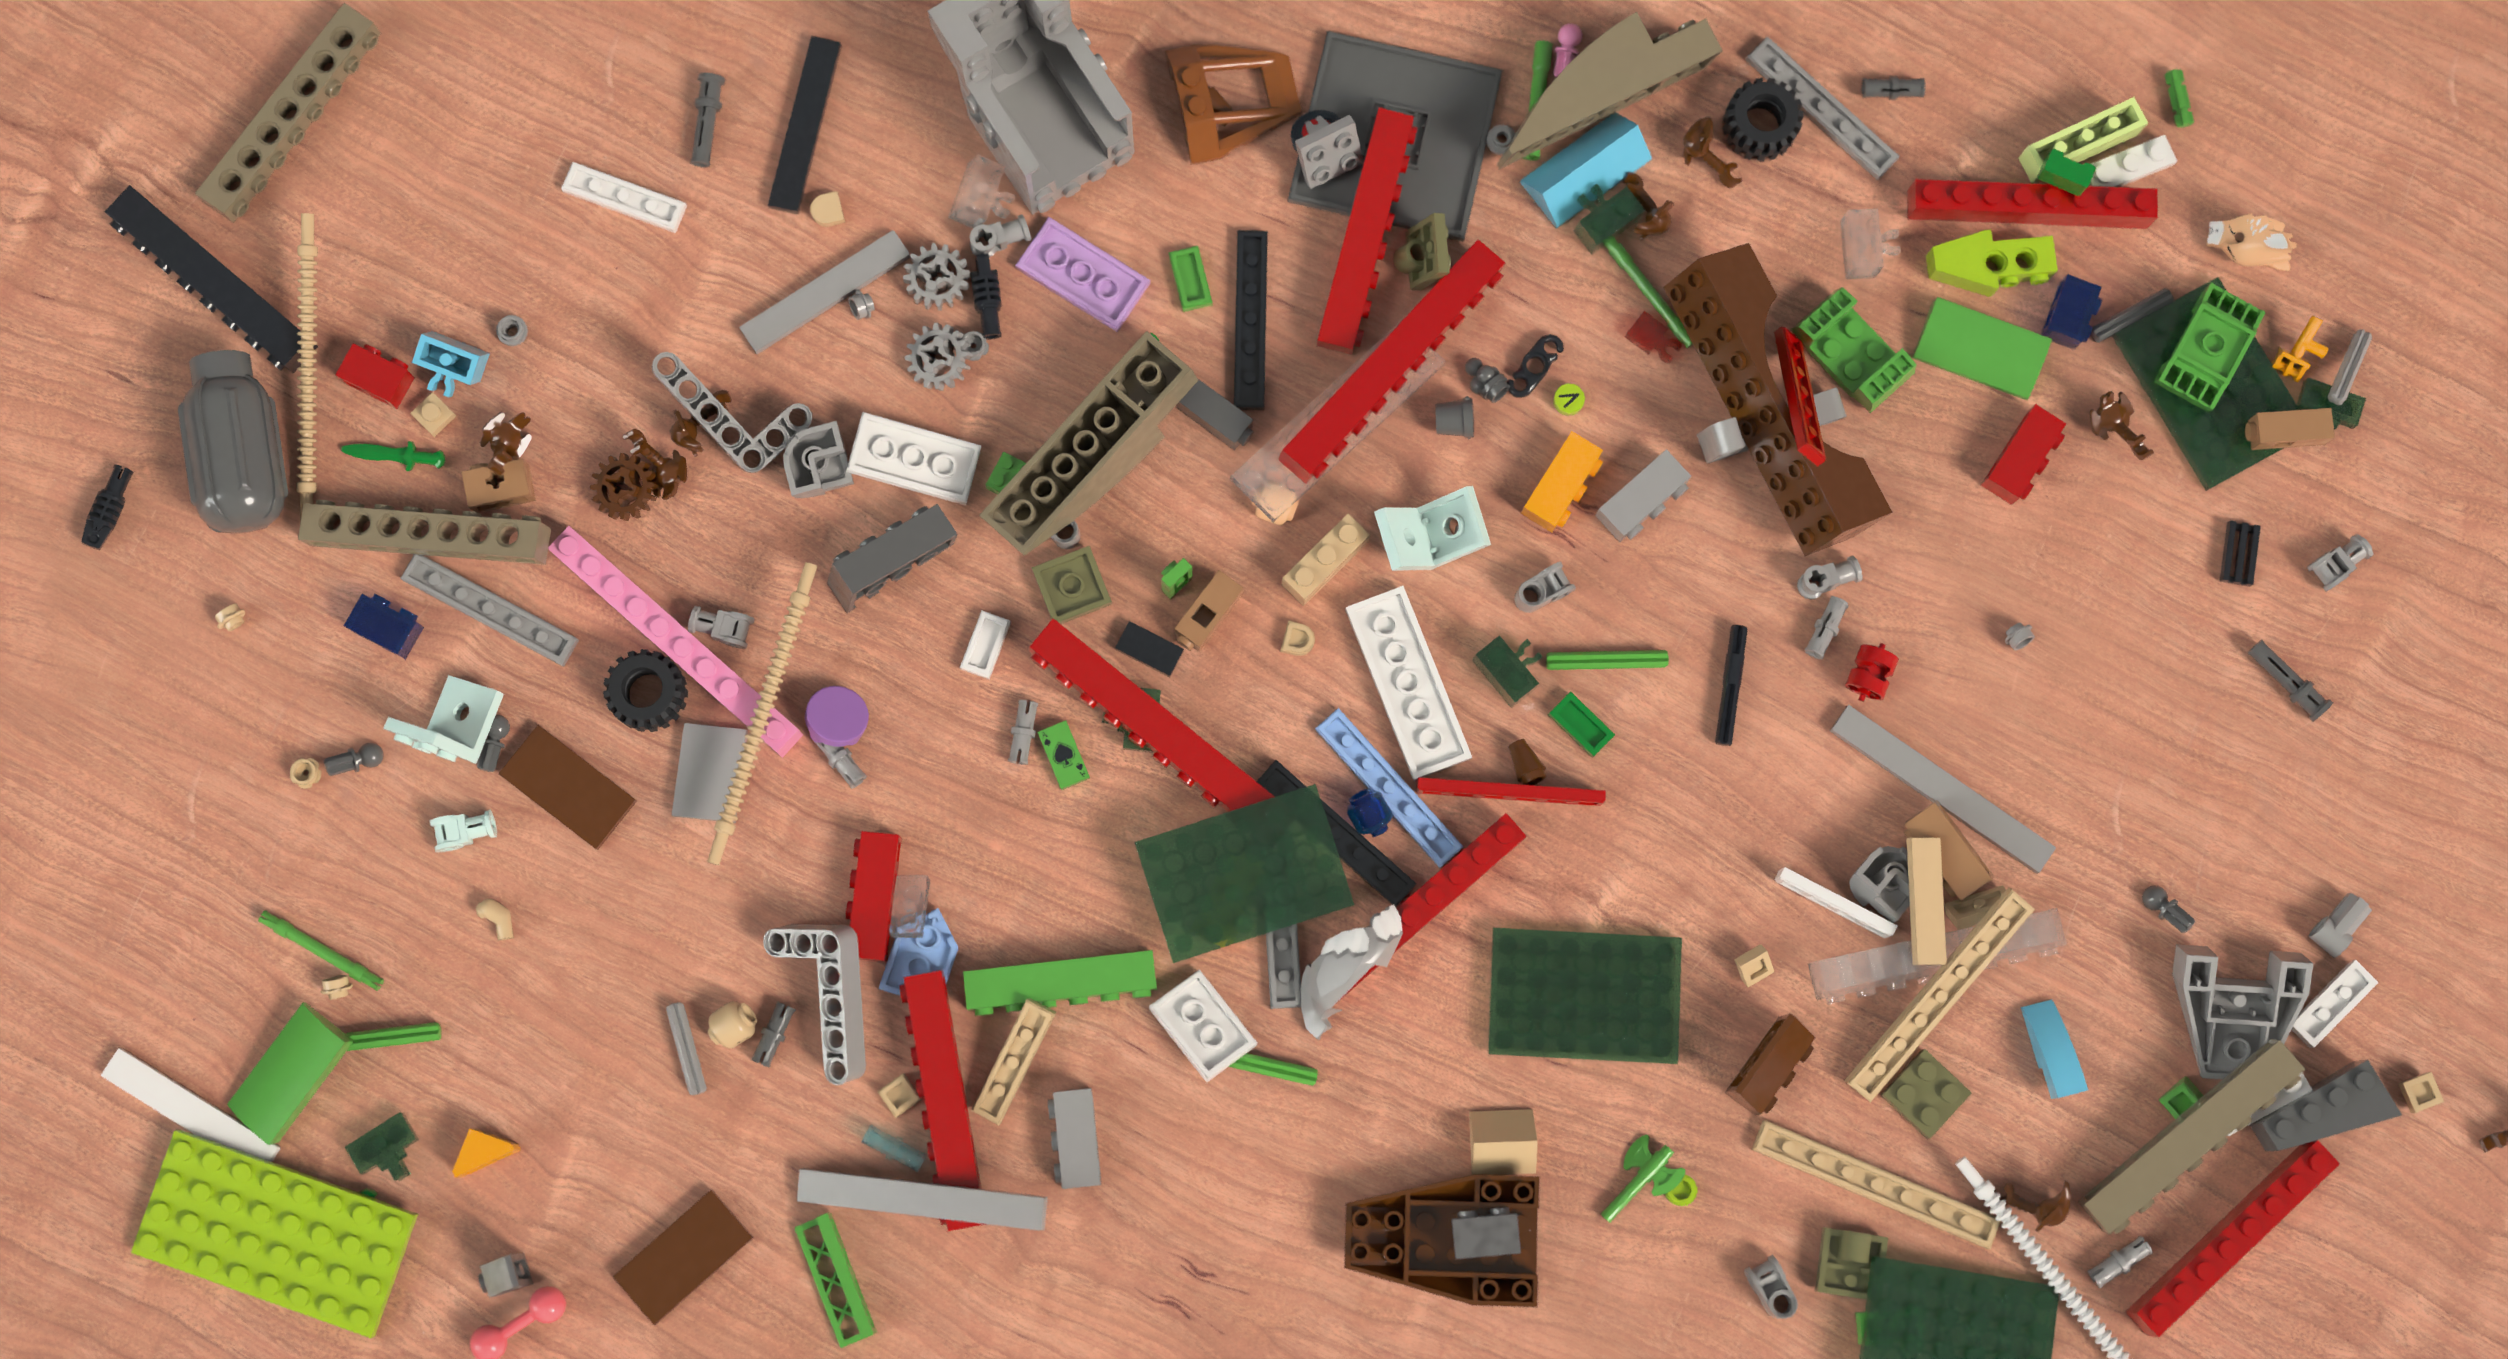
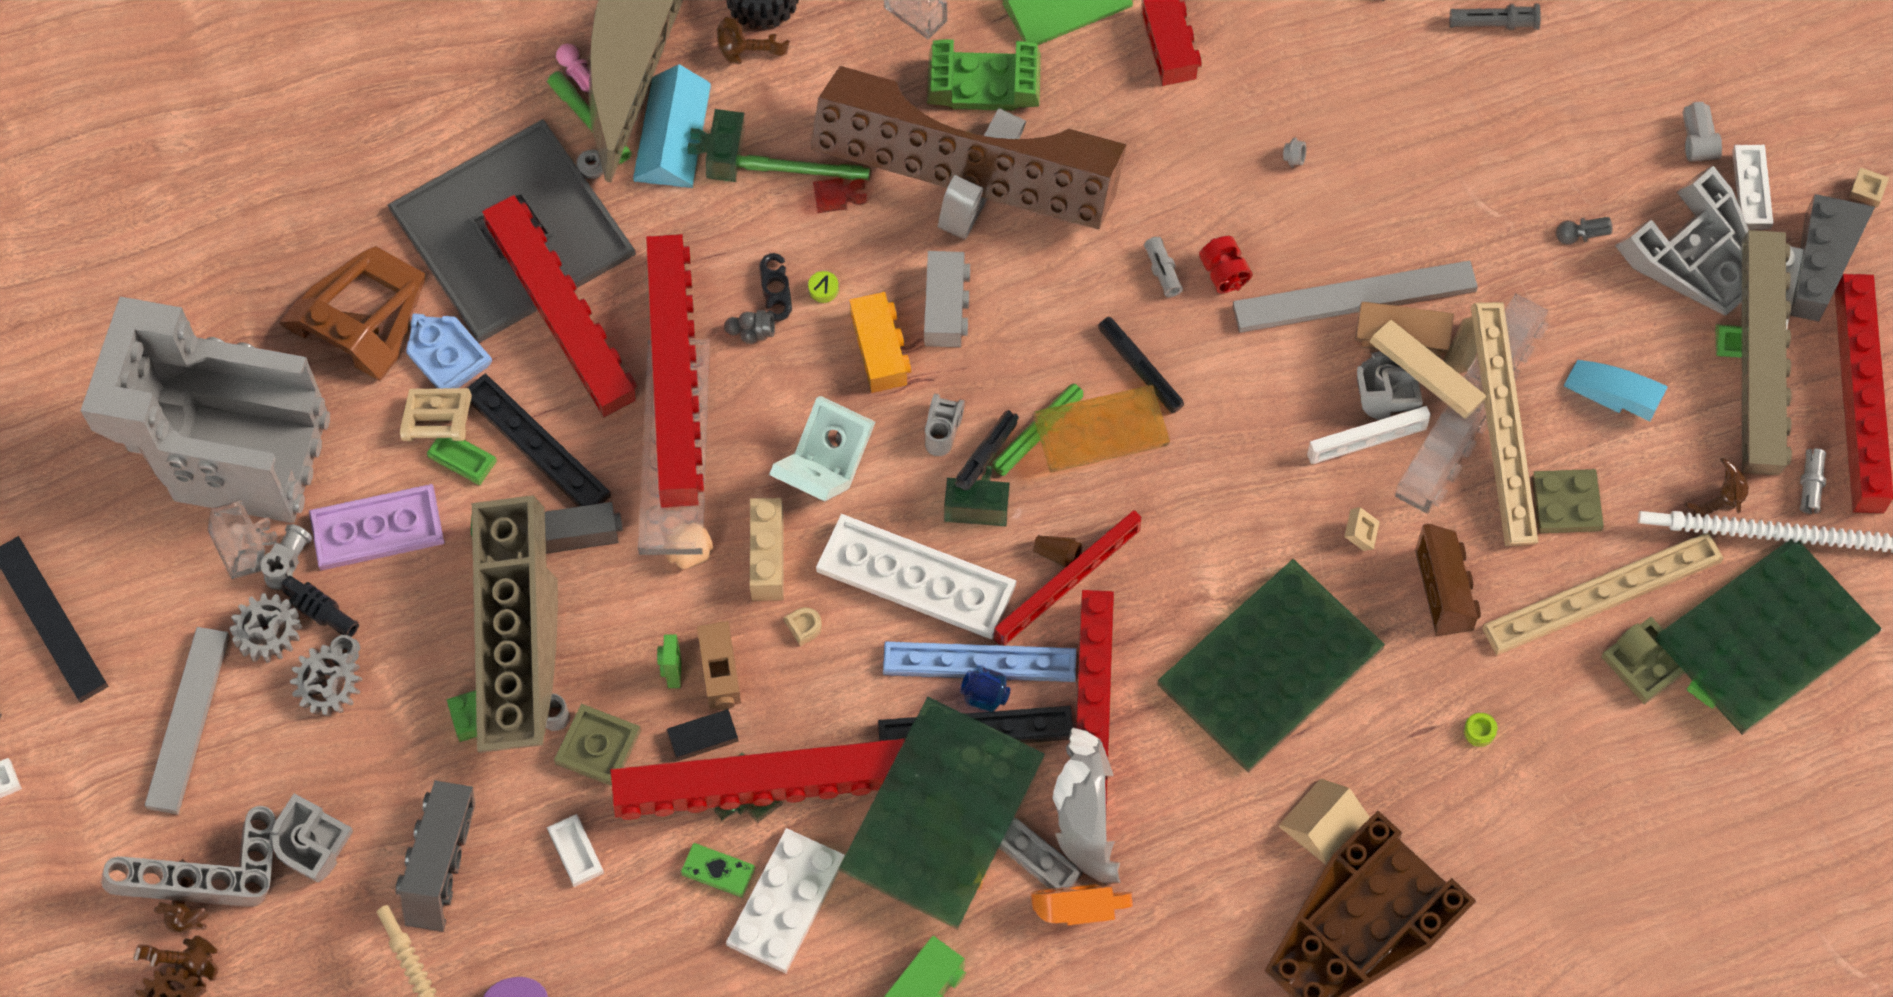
camera: 40 degrees left, 15 degrees down
(827, 209) = (129, 660): tan tile -> none
(861, 305) = (226, 702): light grey plate -> none
(913, 458) = (381, 769): white tile -> none
(1023, 732) = (670, 883): light grey pin -> none
(1087, 822) = (785, 900): none -> white plate
(1203, 1025) = (1026, 955): white tile -> none
(1208, 223) = (436, 405): none -> tan plate
(1256, 186) = (445, 351): none -> light blue tile
(1272, 1028) = (1079, 904): none -> orange piece
(1276, 1069) = (1093, 945): bright green axle -> none
(1325, 145) = (469, 273): light grey plate -> none
(1429, 247) = (617, 279): olive plate -> none
(1455, 418) = (757, 369): dark grey piece -> none
(1485, 1234) = (1386, 887): flat silver brick -> none
(1549, 642) = (986, 450): none -> black axle
(1581, 724) = (1067, 488): green tile -> none
(1651, 705) = (1101, 428): none -> clear yellow plate
(1651, 1168) = (1445, 734): bright green piece -> none
(1658, 218) = (758, 113): reddish brown piece -> none
(1772, 1286) = (1613, 729): light grey piece -> none
(1799, 396) = (984, 125): red tile -> none
(1829, 577) = (1127, 234): light grey connector -> none

